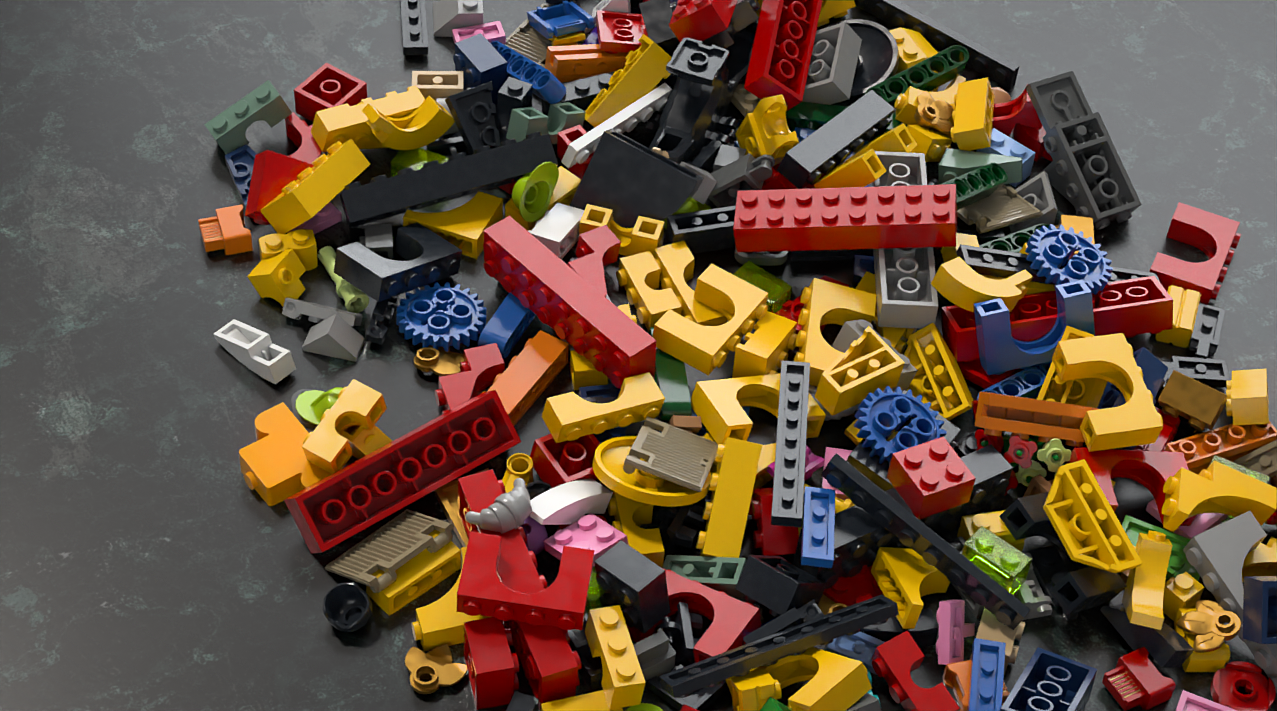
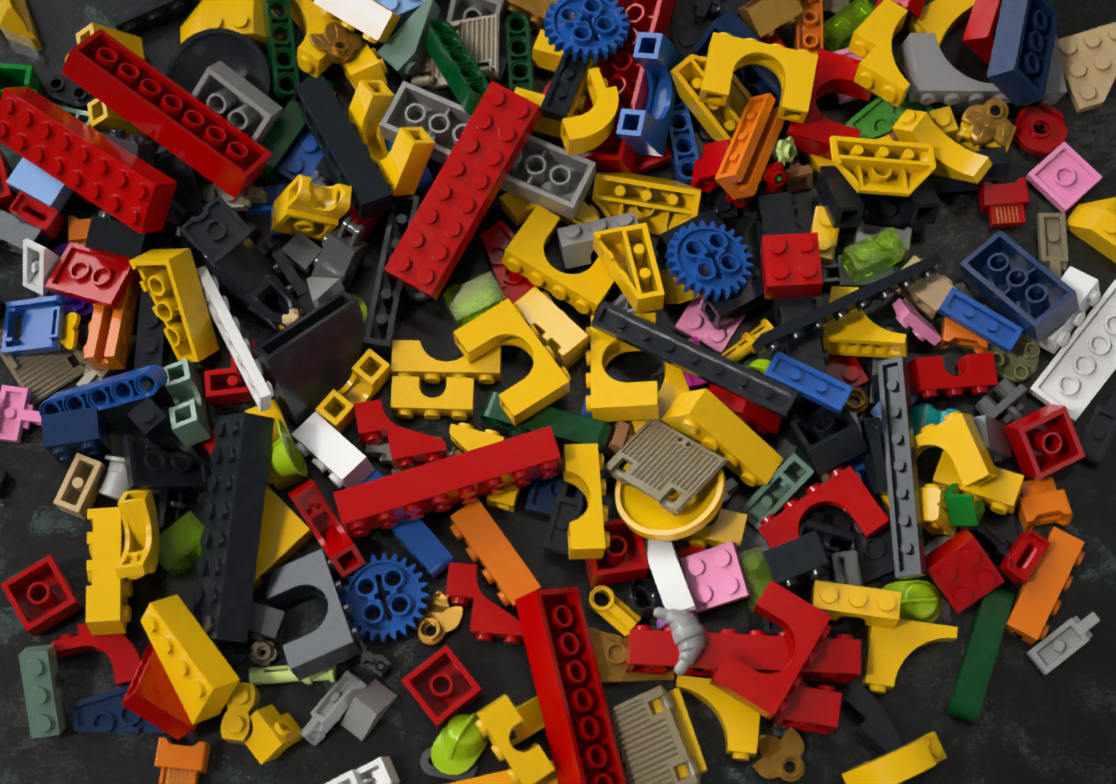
camera: 60 degrees left, 25 degrees up
(381, 369) = (442, 687): none -> red brick
(468, 268) = (326, 528): none -> red arch

